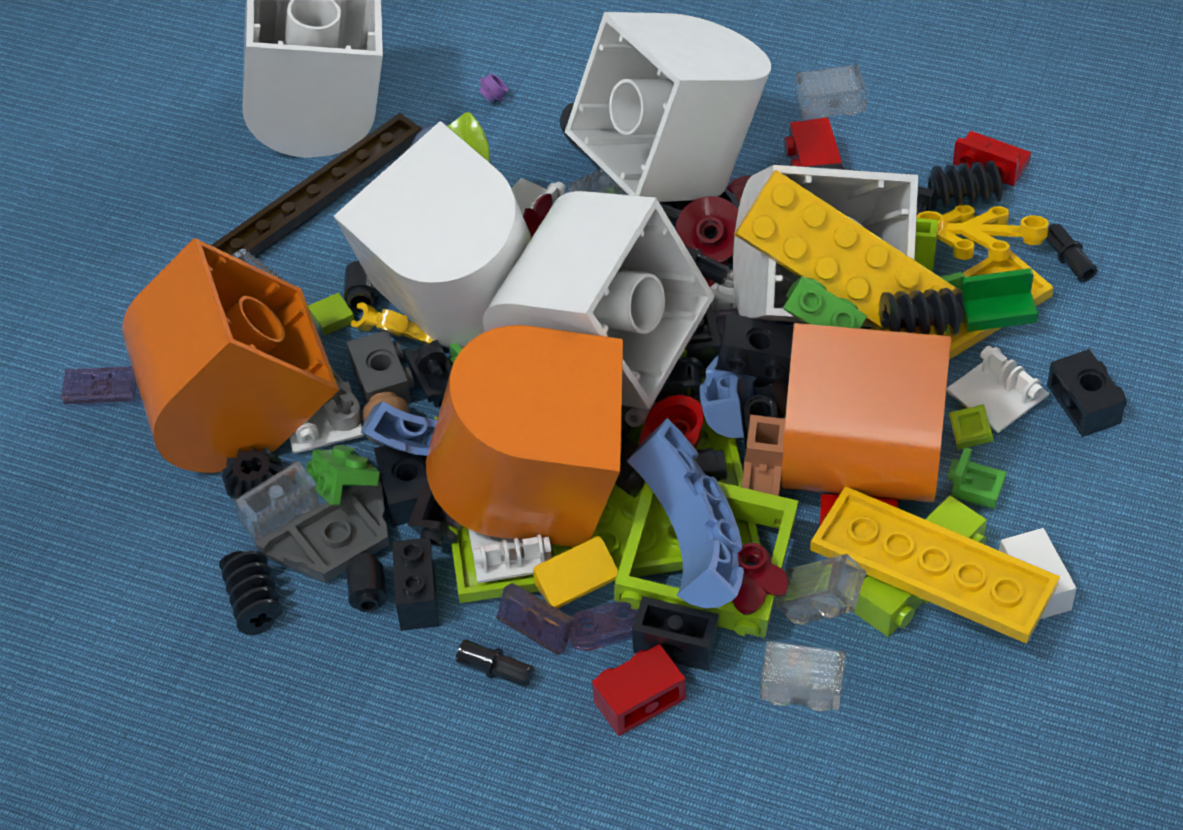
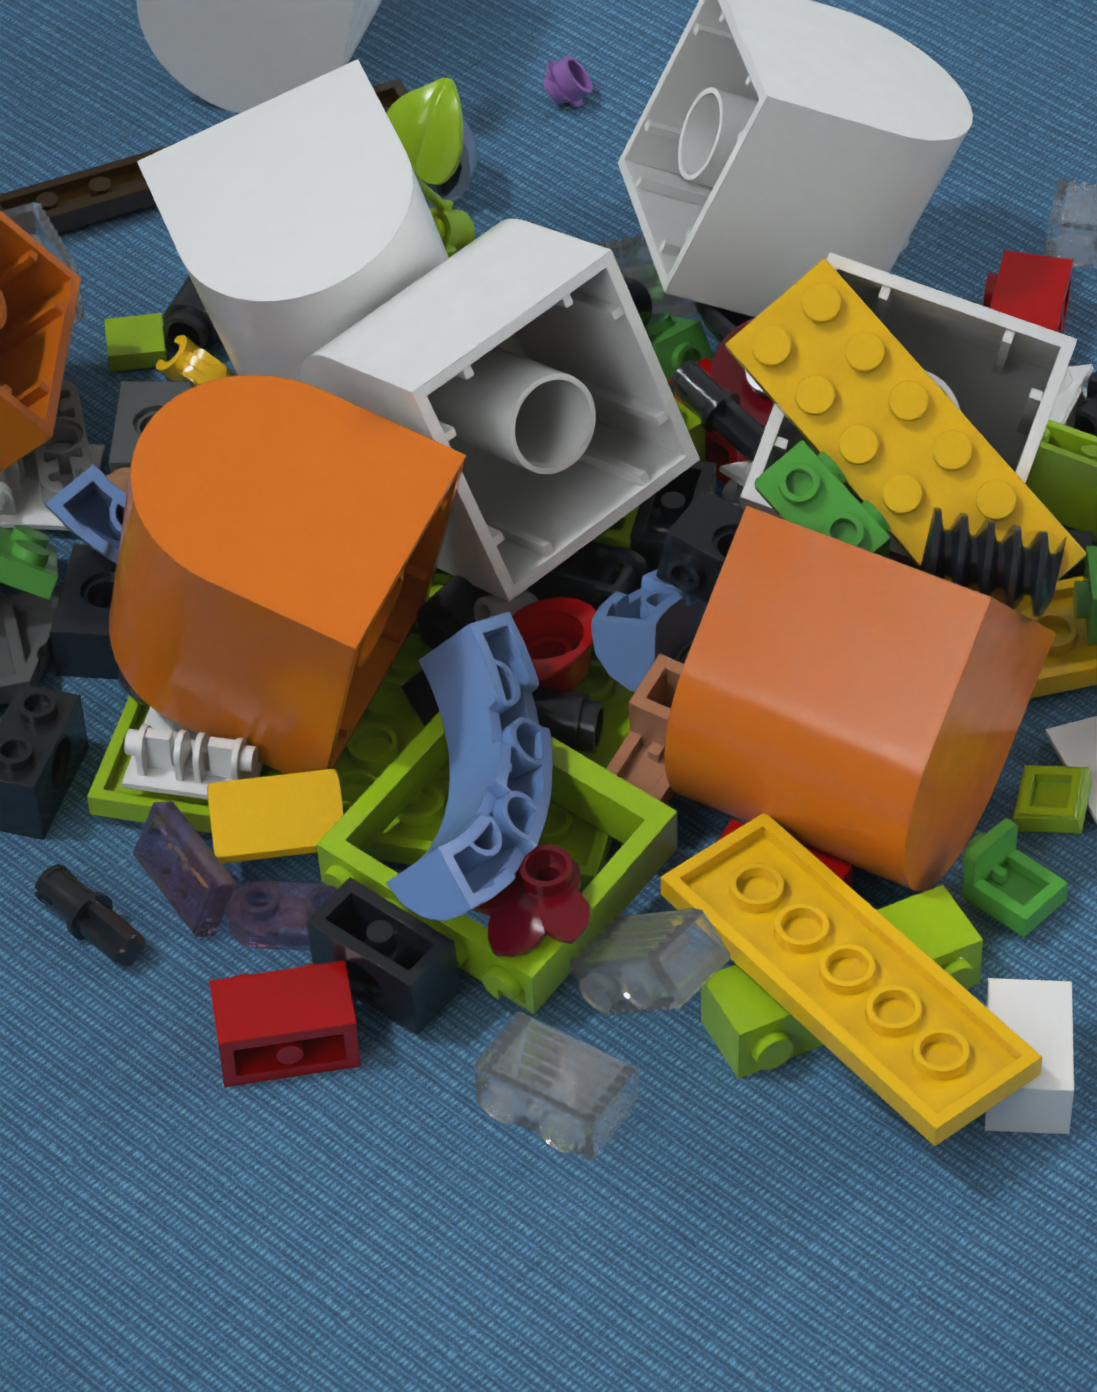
camera: 20 degrees right, 5 degrees down
(429, 520) = (95, 675): black bracket -> none

